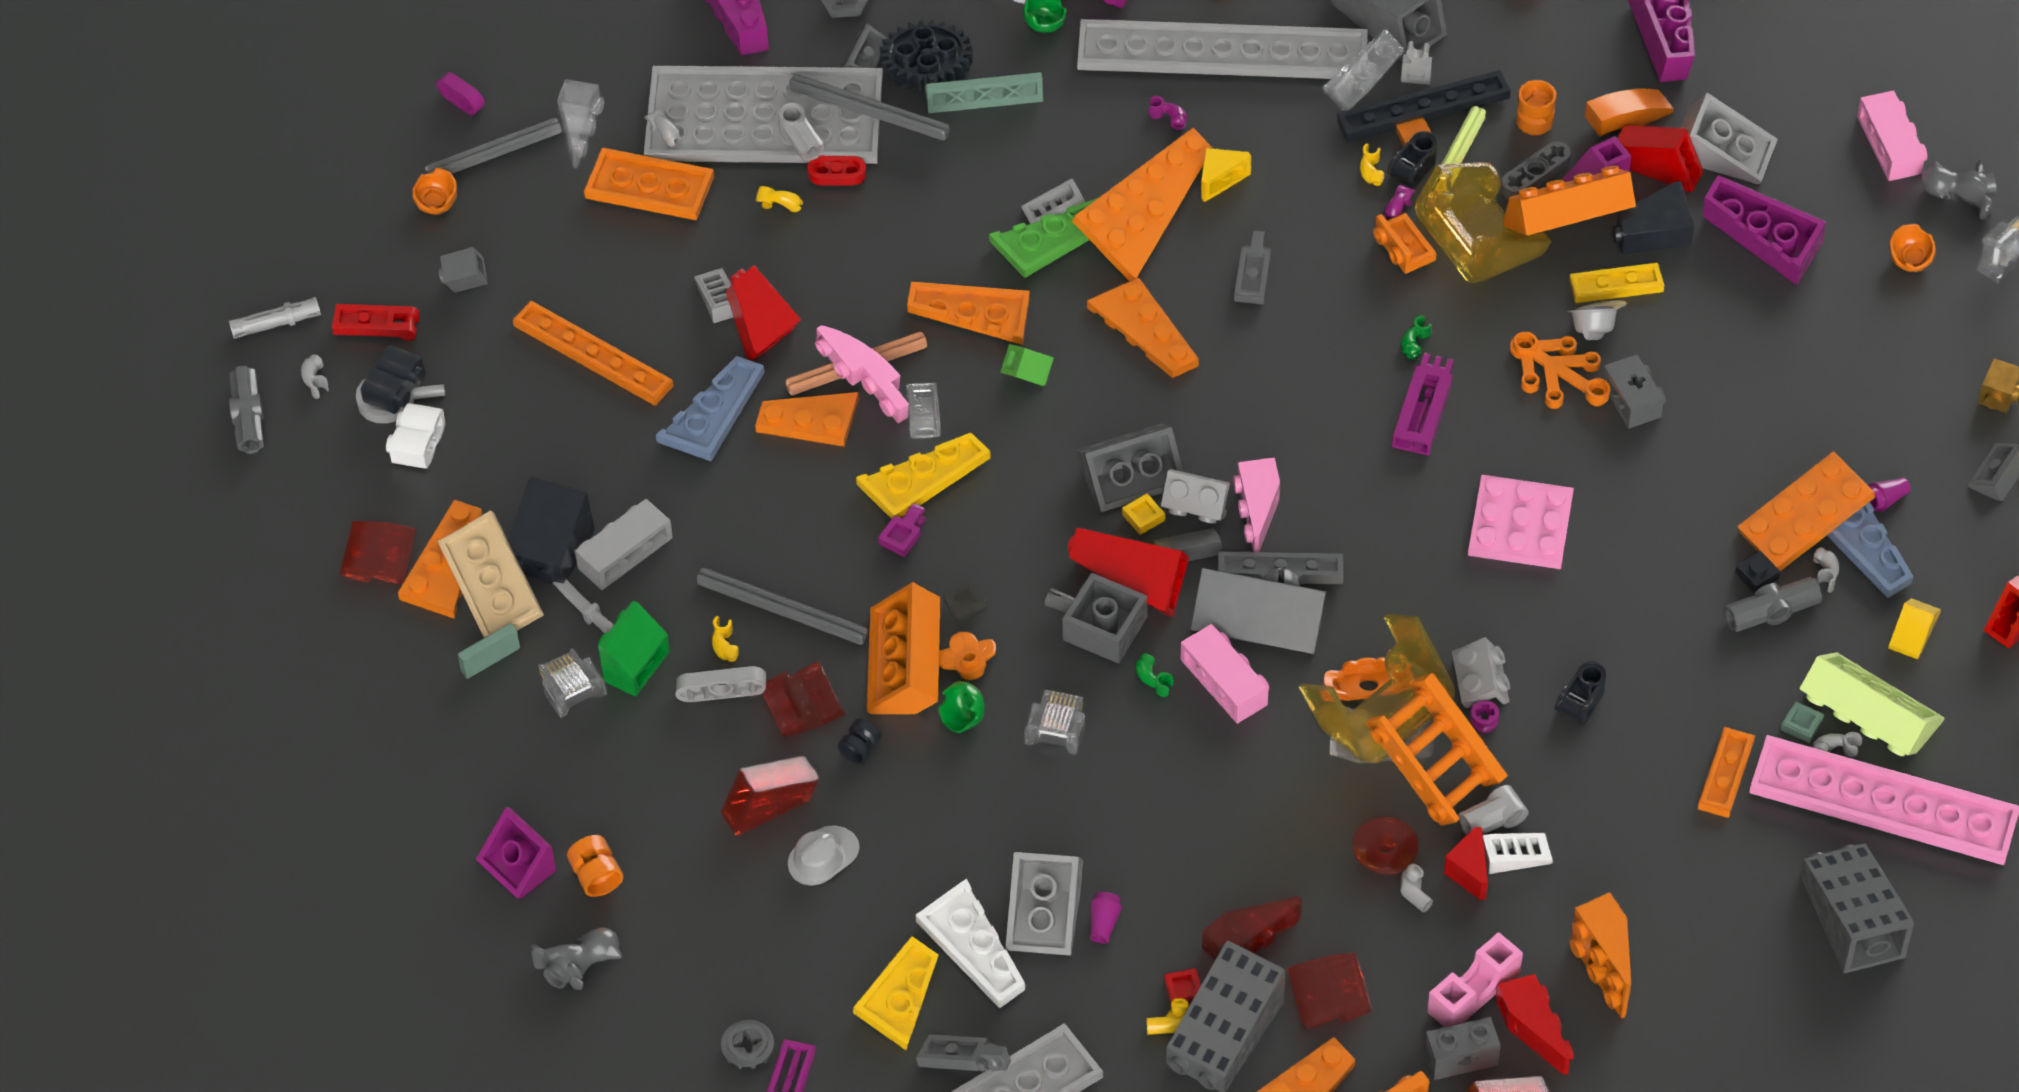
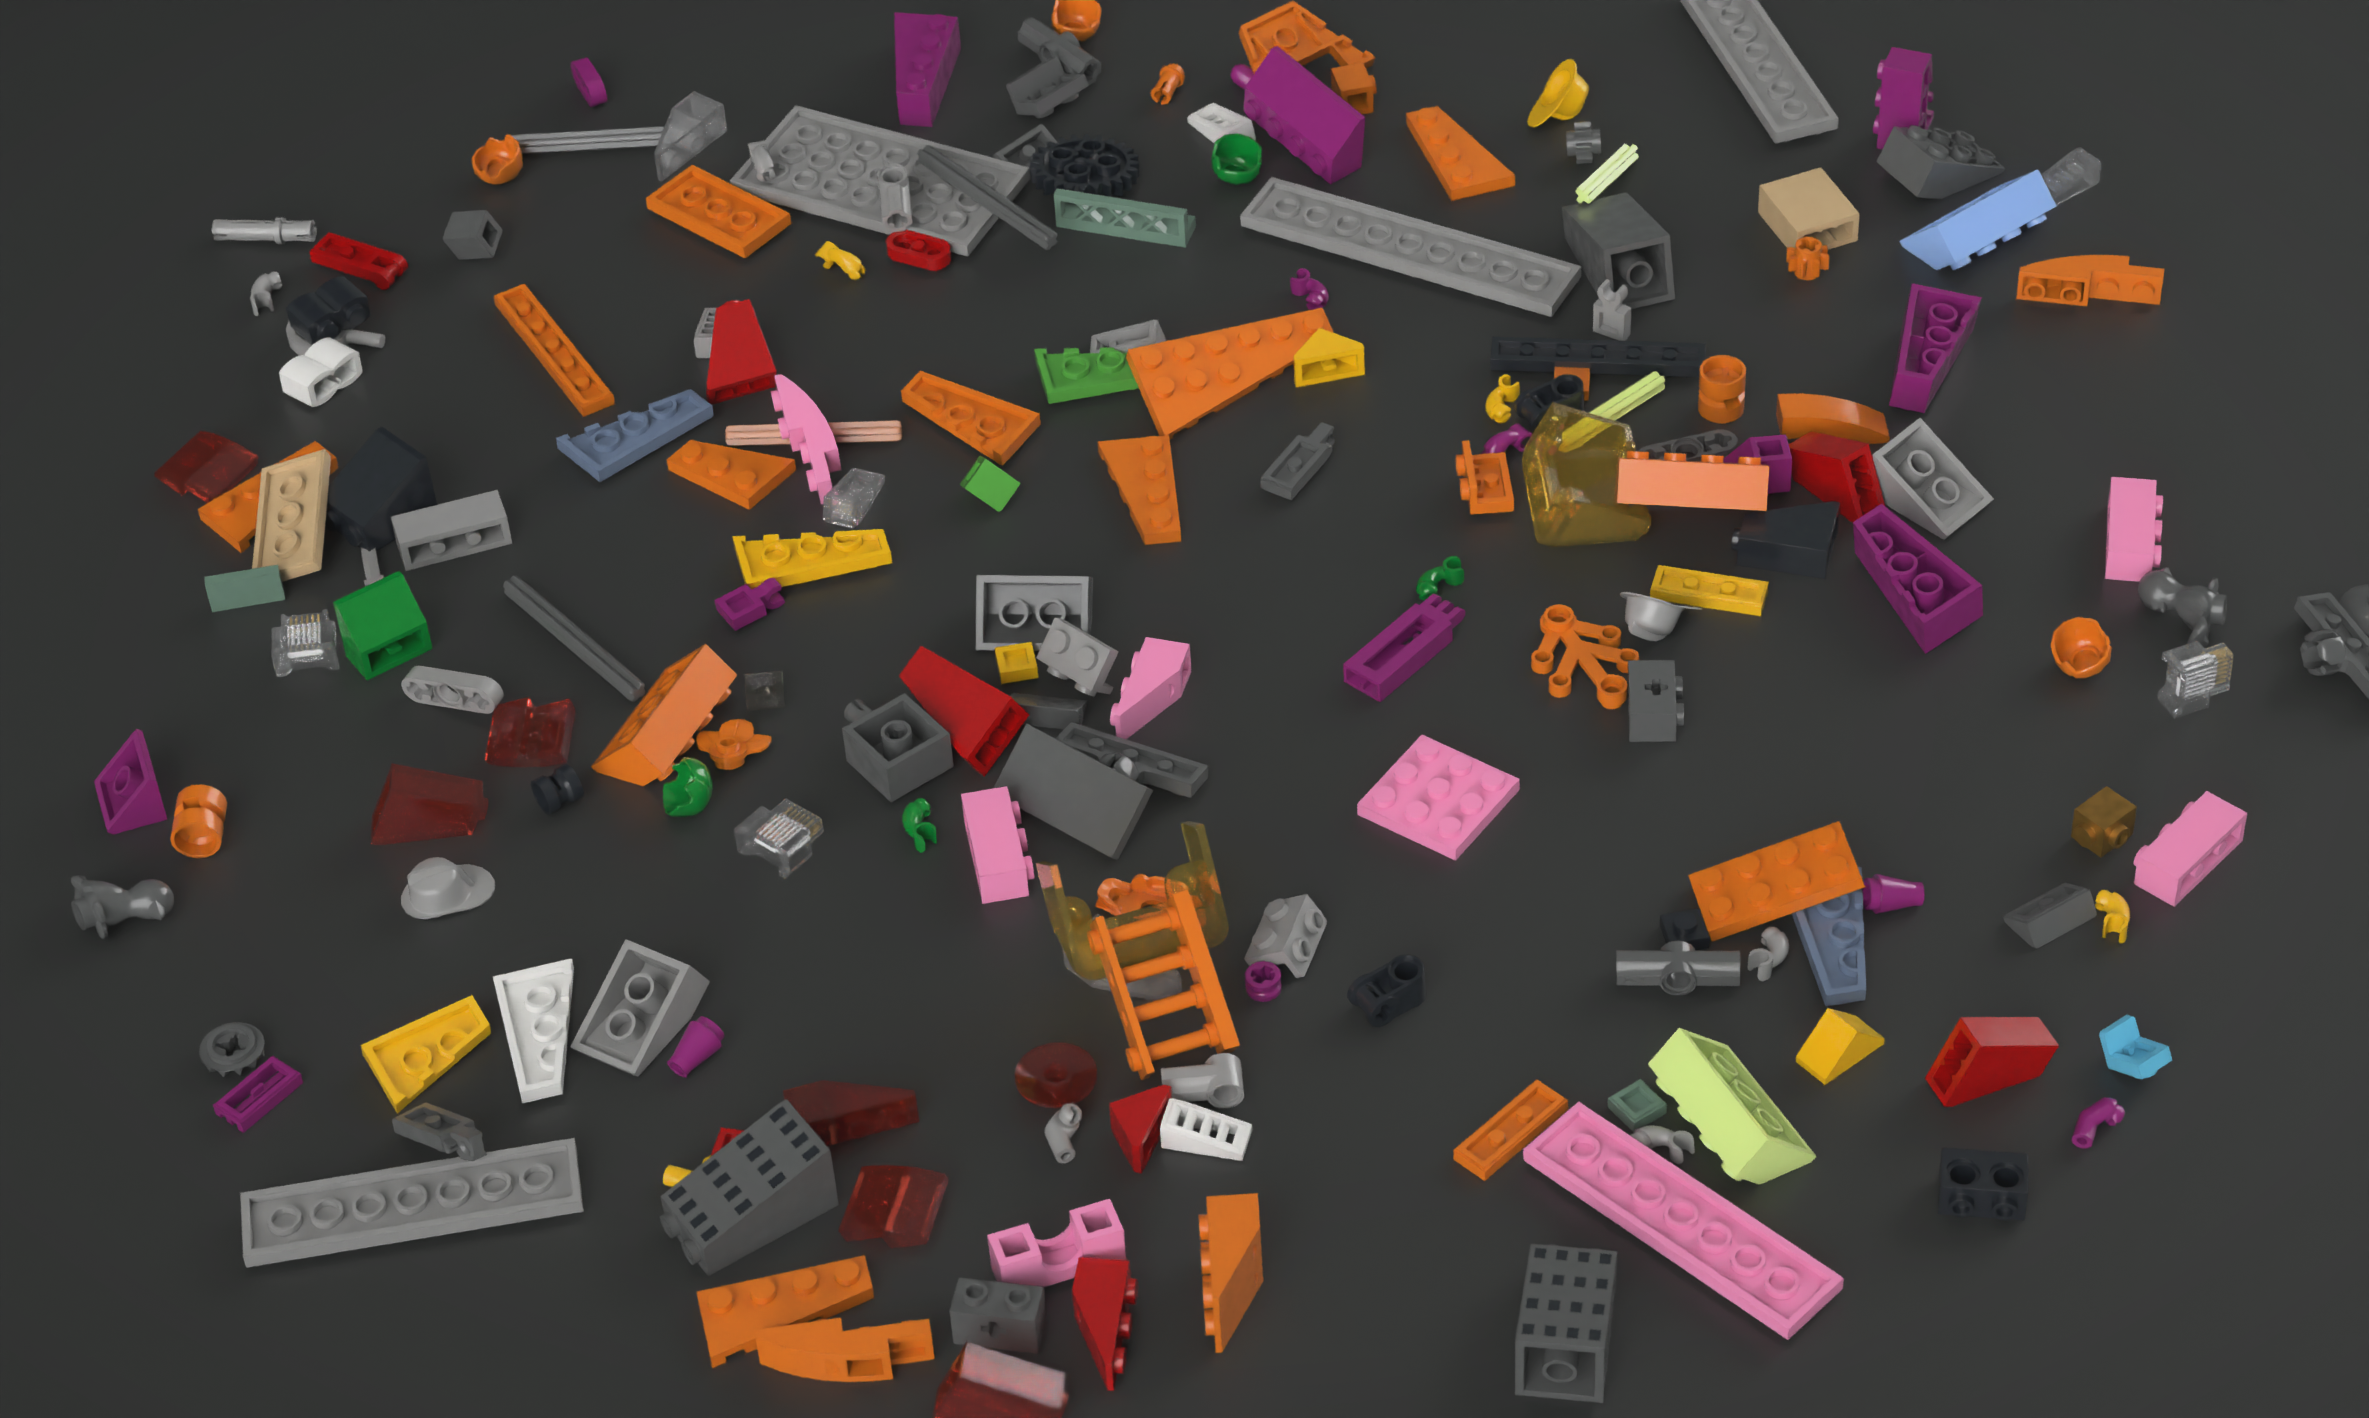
camera: 25 degrees right, 10 degrees down
(246, 409) = (175, 302): dark grey piece -> none
(720, 645) = (496, 643): yellow arm -> none
(1363, 71) = (1544, 298): clear slope -> none

